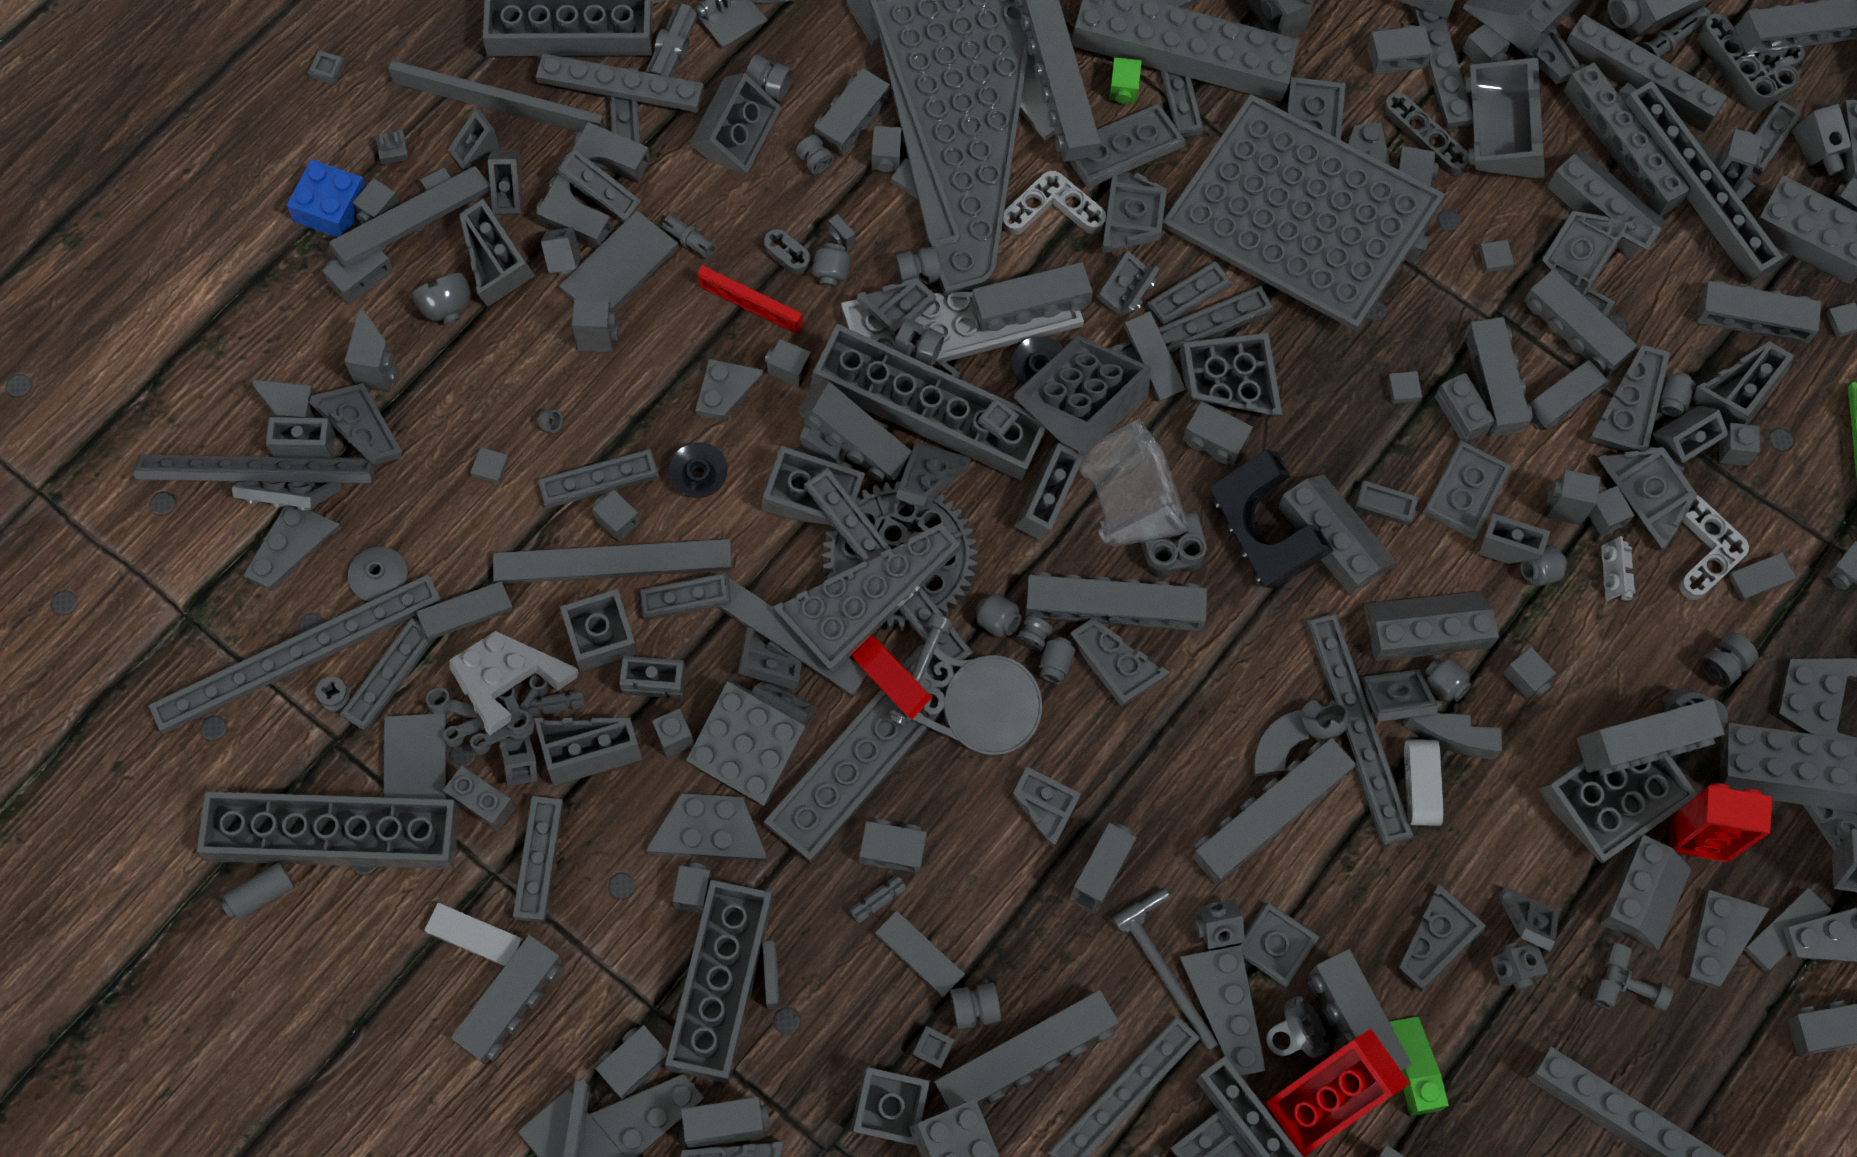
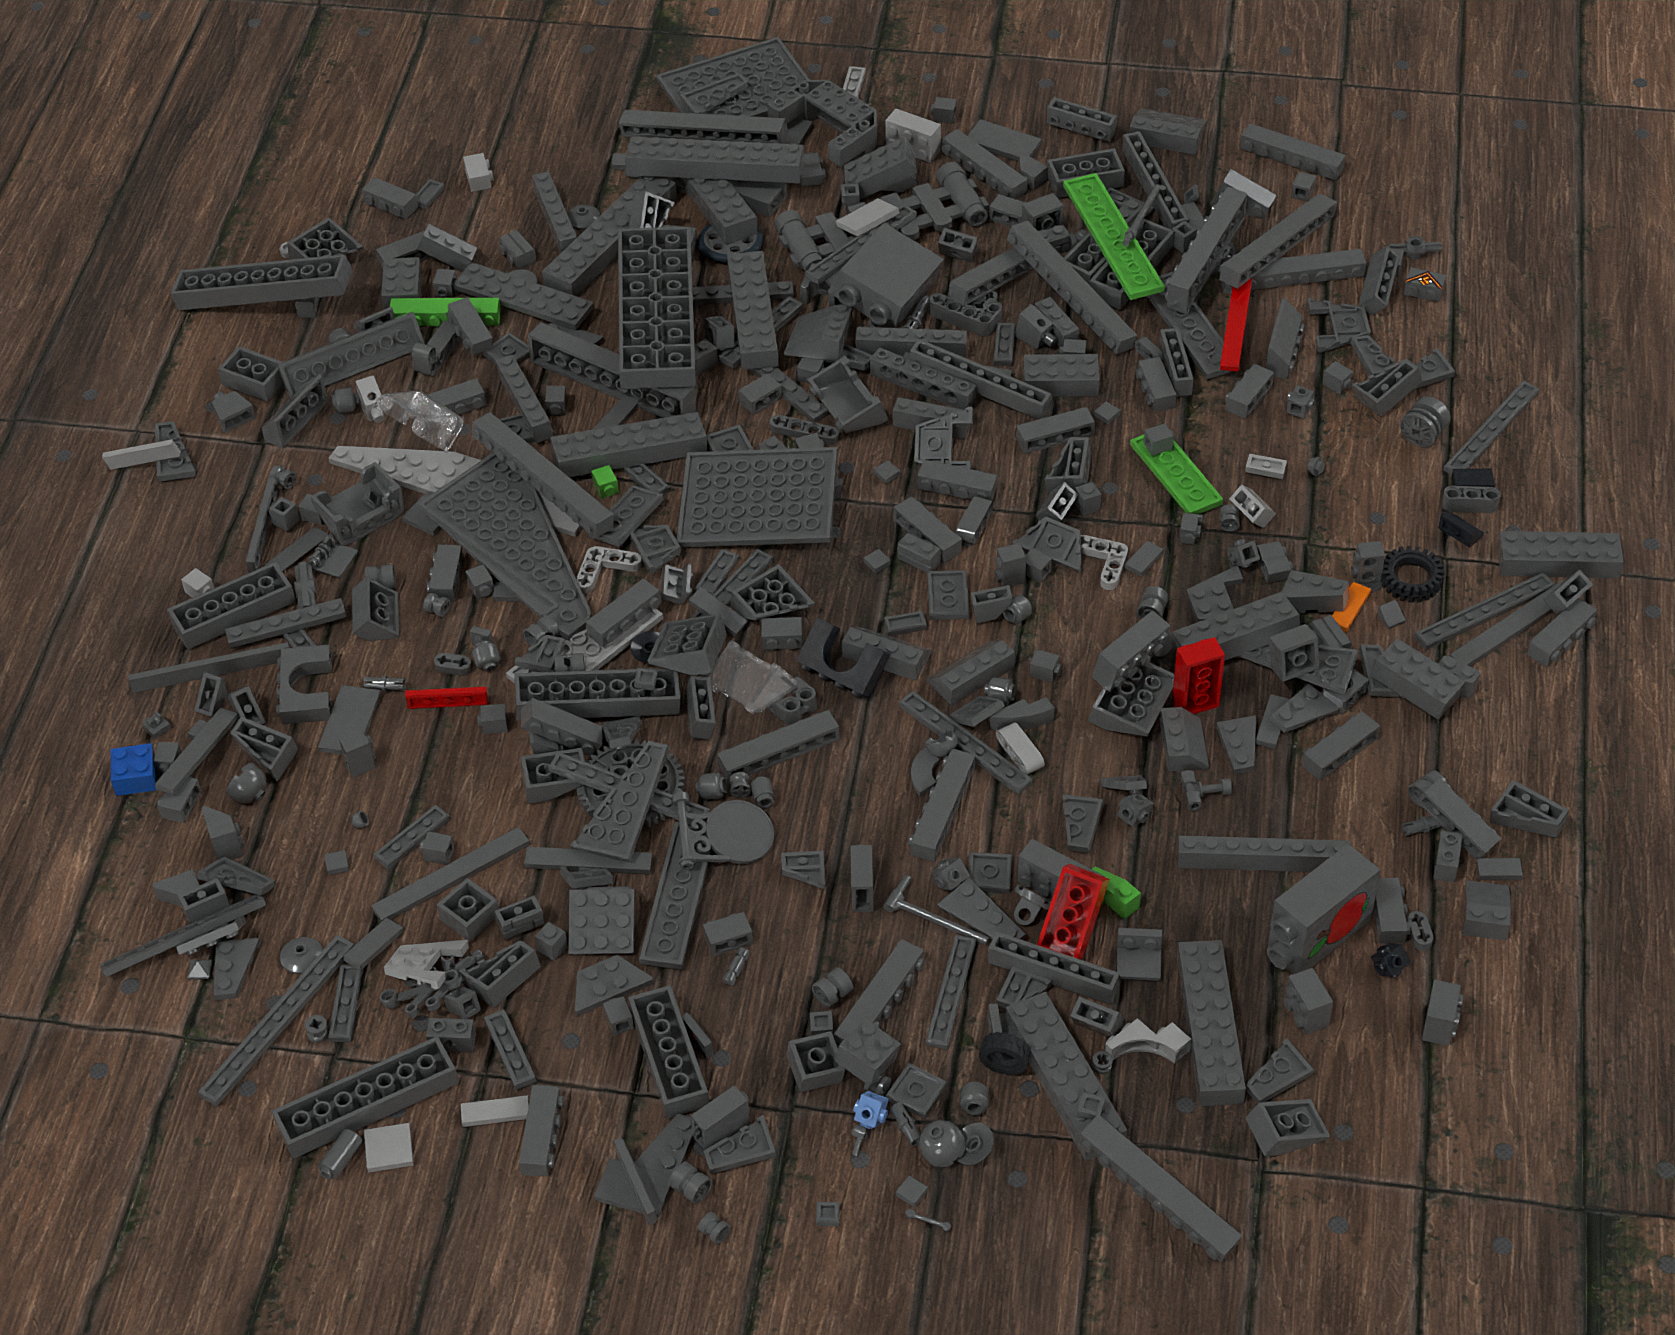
camera: 25 degrees left, 20 degrees down
(251, 526) = (200, 969): none -> dark grey slope
(323, 912) = (388, 1147): none -> light grey tile
(326, 67) = (82, 703): dark grey tile -> none
(415, 756) = (390, 1032): dark grey tile -> none
(561, 250) = (308, 725): dark grey brick -> none
(598, 185) = (308, 680): dark grey tile -> none
(632, 1062) = (642, 1122): dark grey brick -> none
(685, 596) = (510, 869): dark grey tile -> none
(698, 458) = (474, 800): black dish -> none
(724, 388) = (461, 752): dark grey wing -> none
(891, 676) = (668, 842): red tile -> none
(919, 954) = (780, 982): dark grey tile -> none
(1115, 663) = (804, 779): dark grey wing -> none
(1616, 560) = (1059, 592): light grey hinge -> none
(1633, 408) = (1014, 506): dark grey wing -> none
(1676, 394) = (1036, 491): dark grey brick -> none
(1739, 157) = (993, 354): dark grey brick -> none

